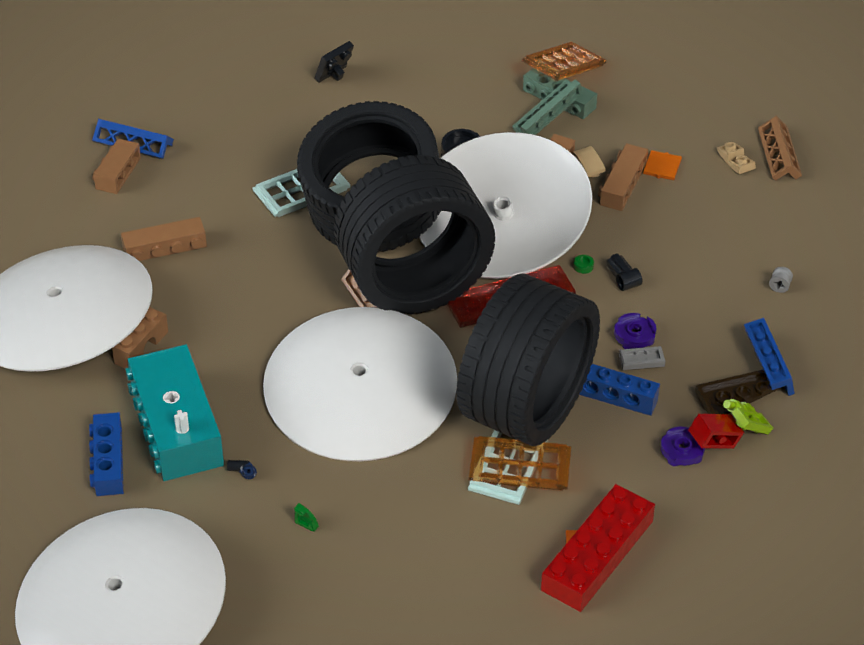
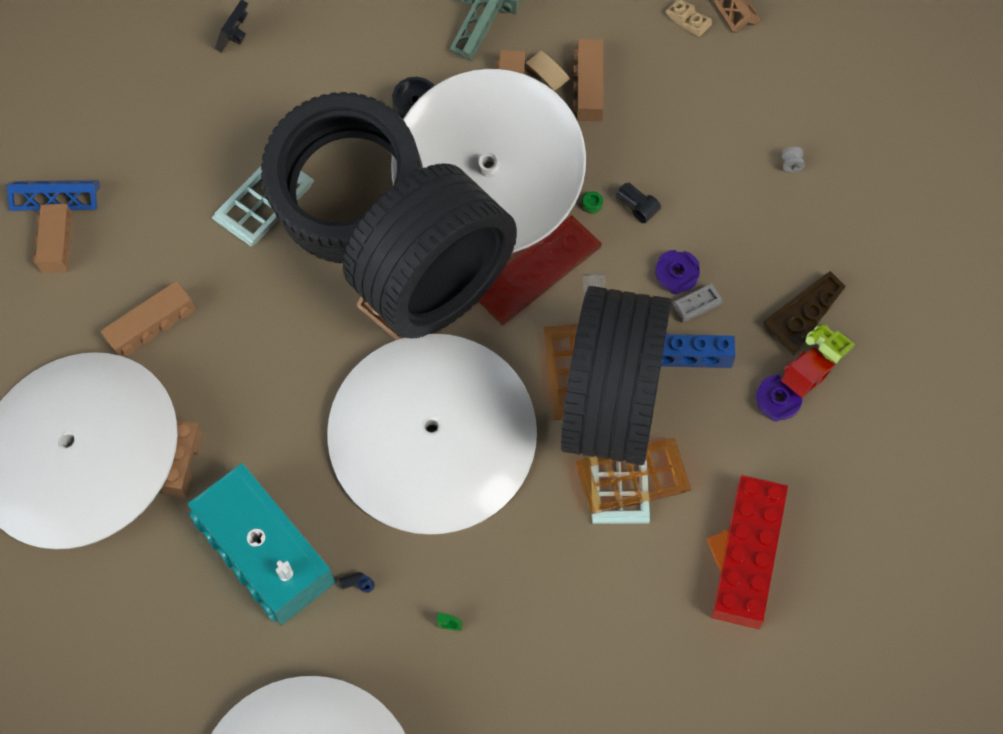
camera: 20 degrees left, 20 degrees up
(107, 454) = (230, 649): blue brick -> none
(662, 165) = (619, 49): orange piece -> none
(769, 355) = (820, 260): blue fence -> none

